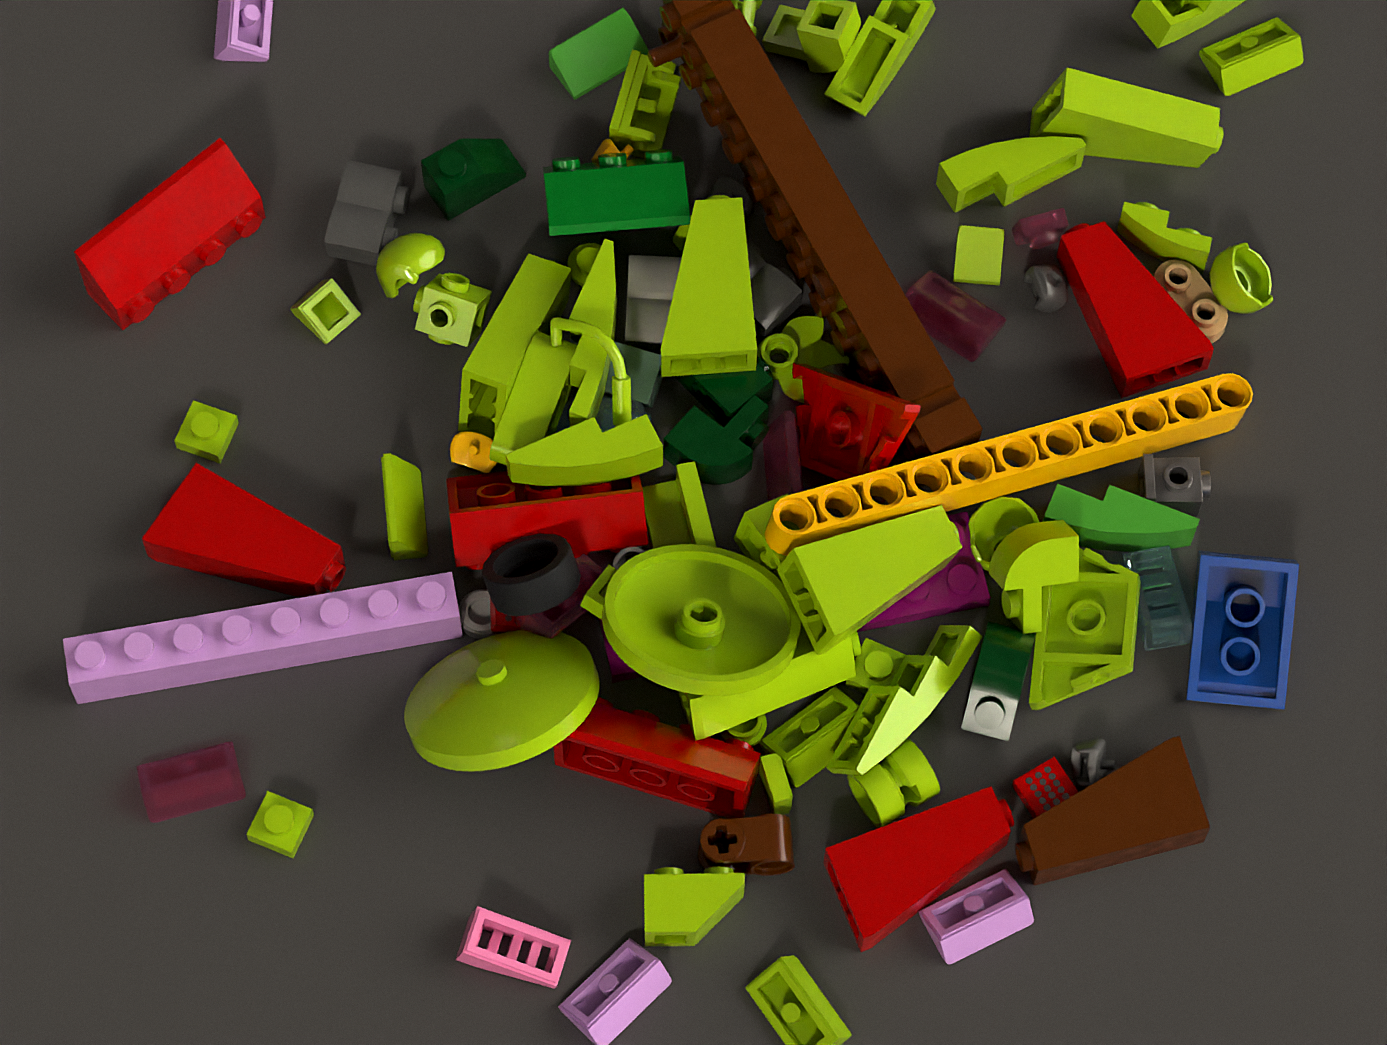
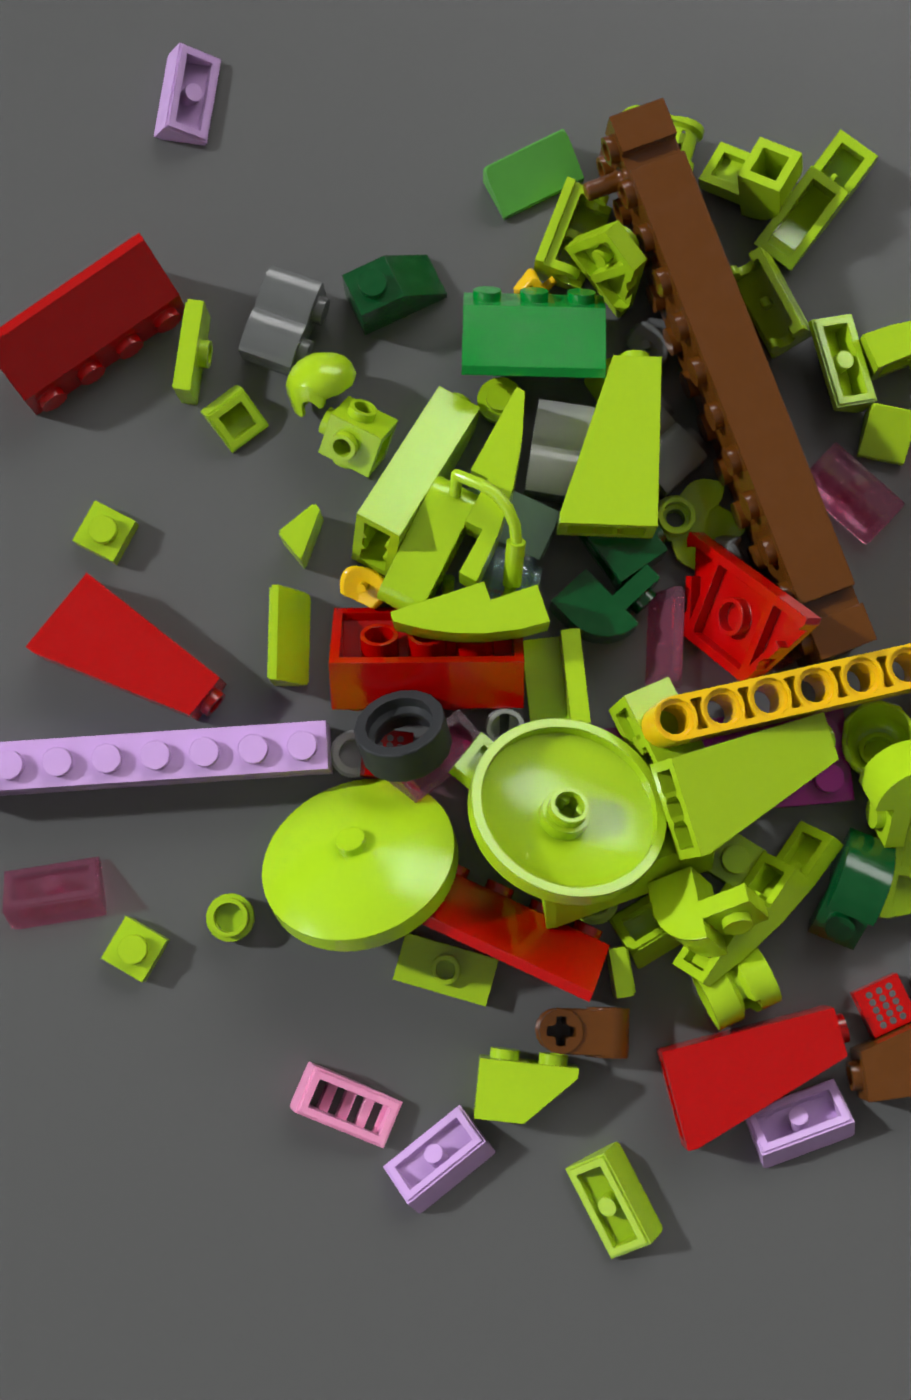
camera: 10 degrees right, 15 degrees up
(279, 251) = (193, 352): none -> lime plate
(374, 782) = (230, 917): none -> lime plate
(406, 408) = (302, 533): none -> lime slope
(599, 807) = (445, 969): none -> lime plate
(684, 124) = (611, 263): none -> lime wing
(847, 146) = (770, 303): none -> lime hinge
(848, 708) = (697, 917): none -> lime brick
(925, 193) = (843, 363): none -> lime slope

